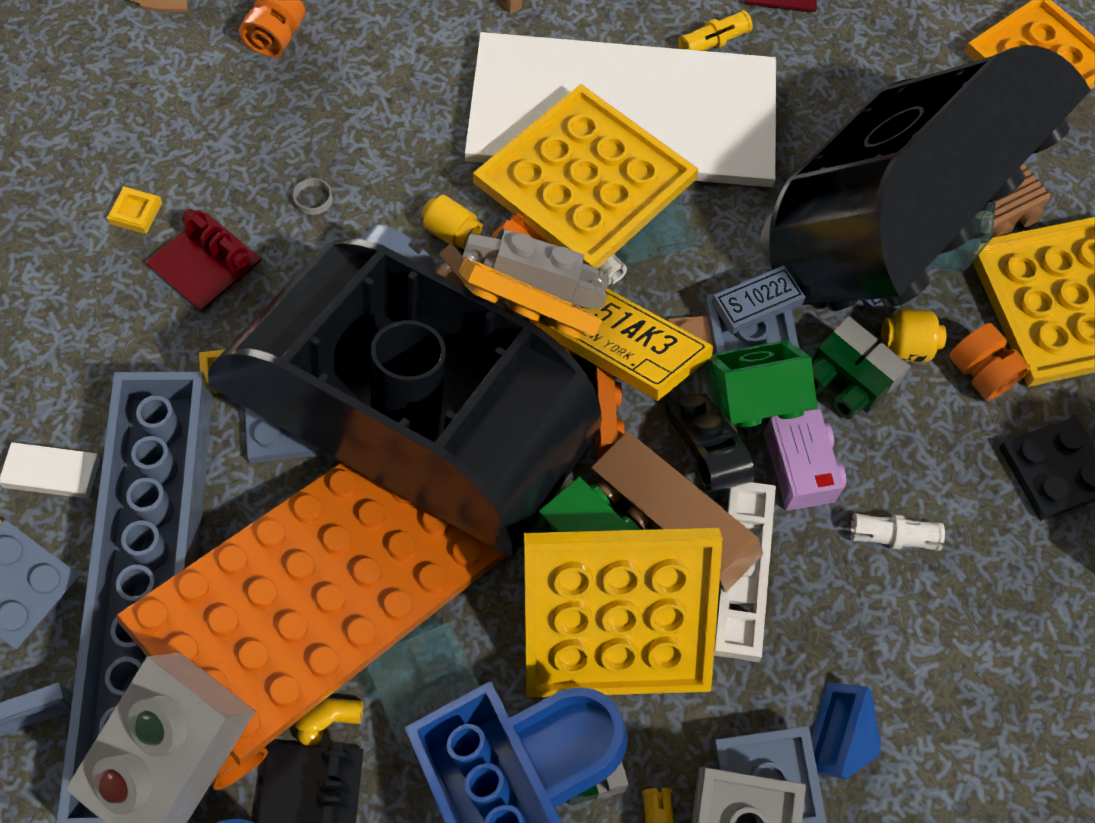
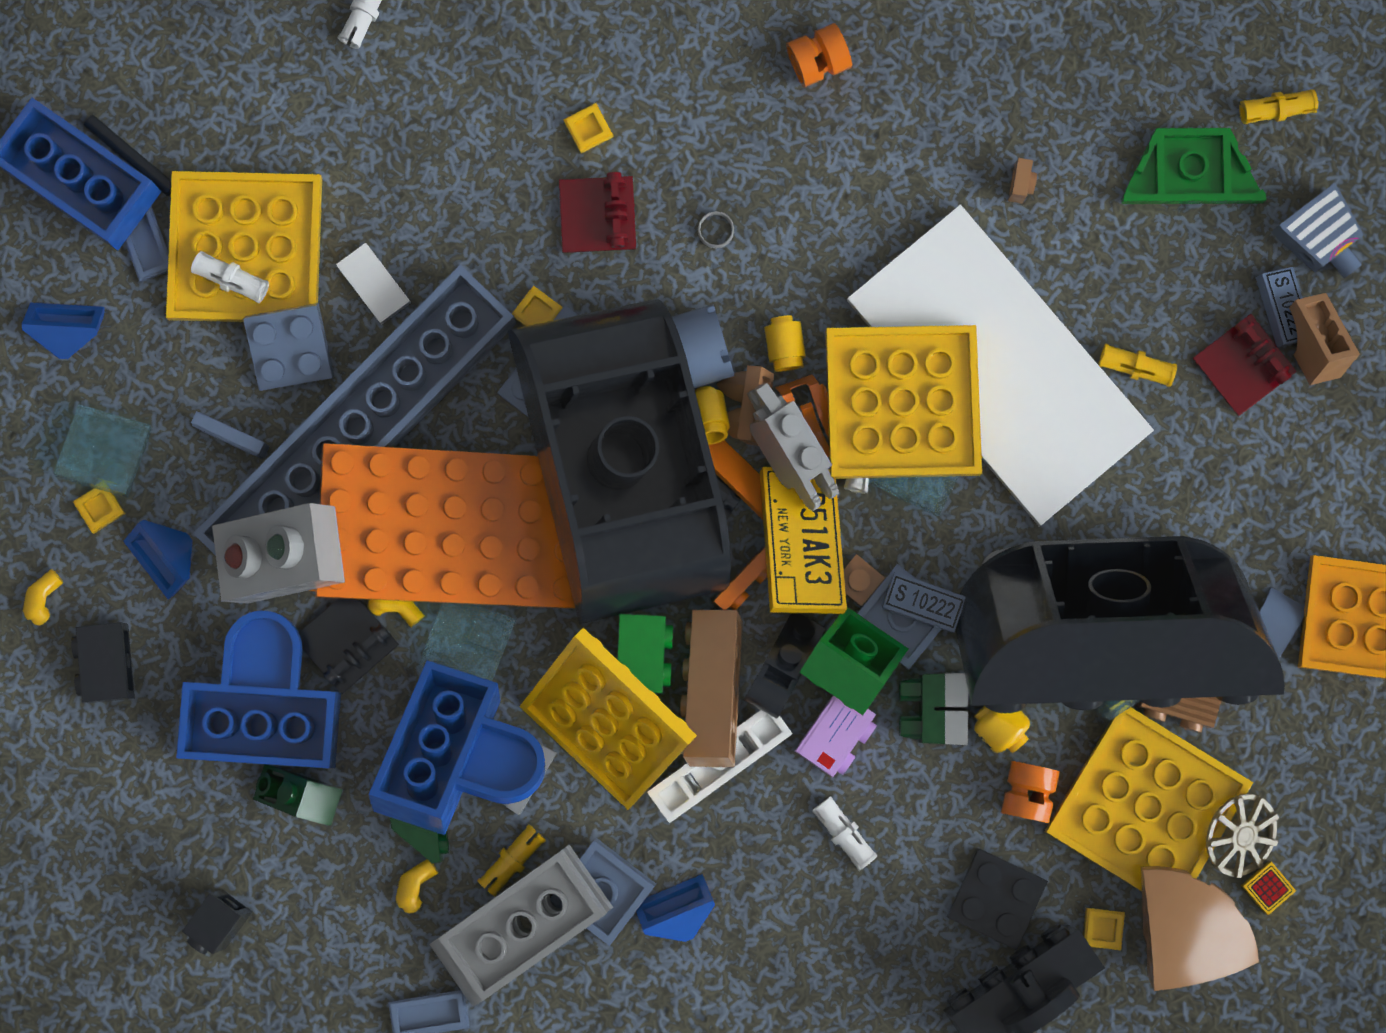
camera: 45 degrees right, 20 degrees up
(528, 299) = (746, 472): light orange plate -> none

